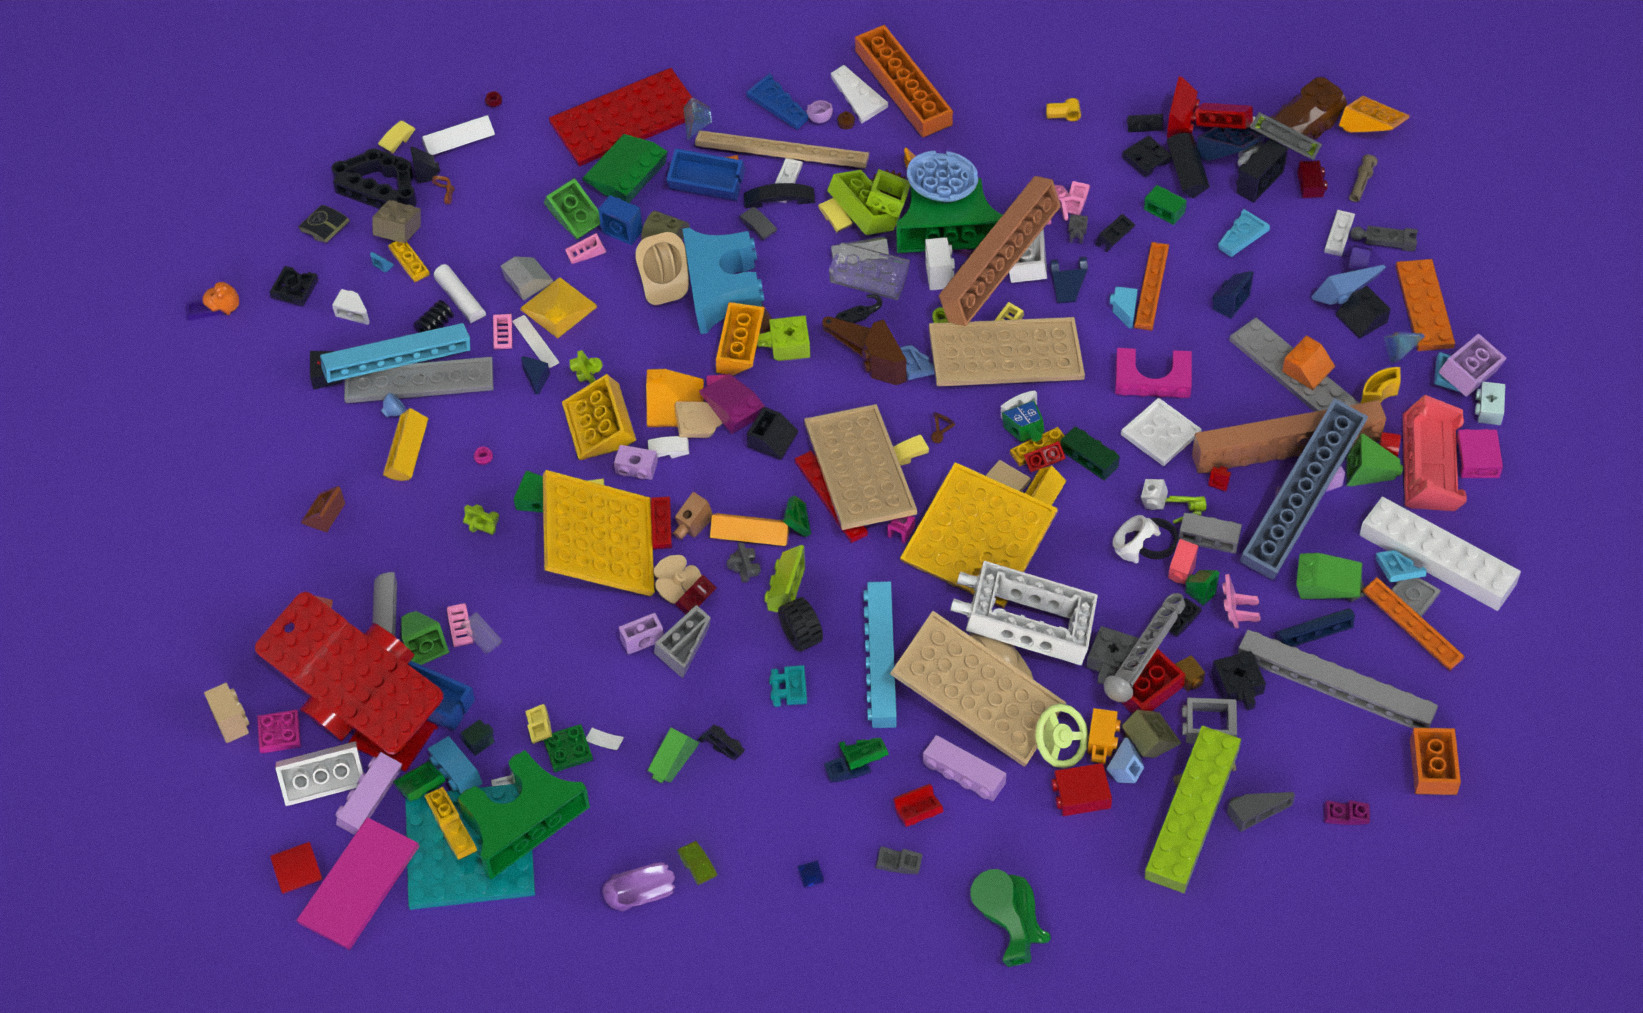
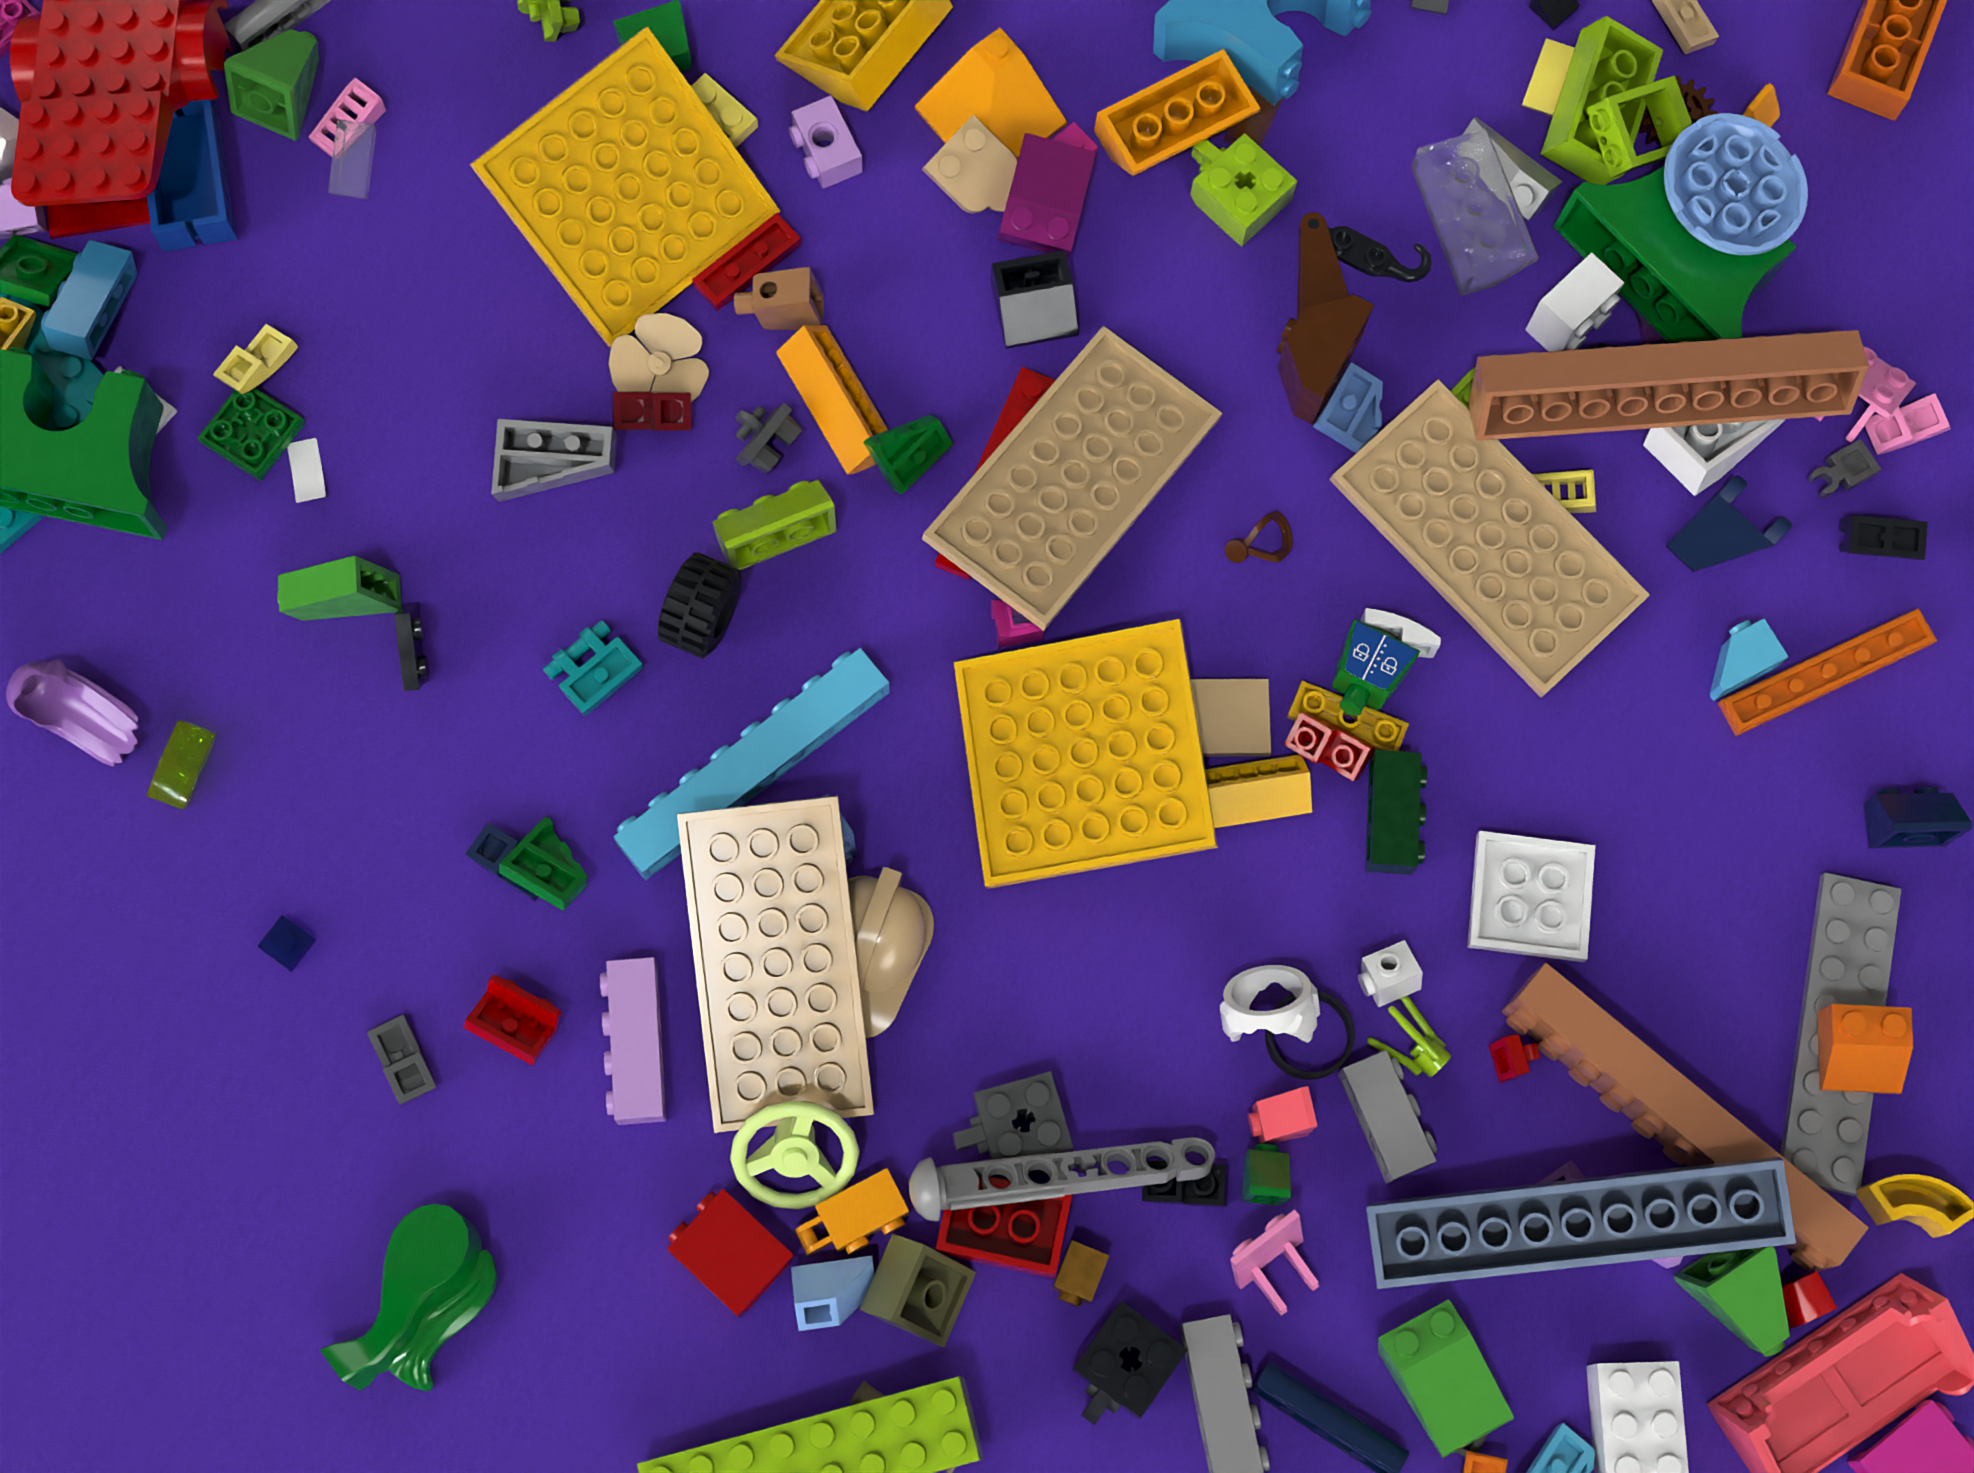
camera: 45 degrees right, 20 degrees up
(477, 737) = (170, 292): brick -> none
(641, 633) = (515, 384): lavender brick -> none
(673, 446) = (895, 166): white slope -> none
(910, 448) = (1173, 526): light yellow slope -> none
(1034, 592) = (1032, 919): white brick -> none
(1131, 382) = (1648, 854): dark pink arch -> none
(1209, 705) = (973, 1340): light grey window -> none

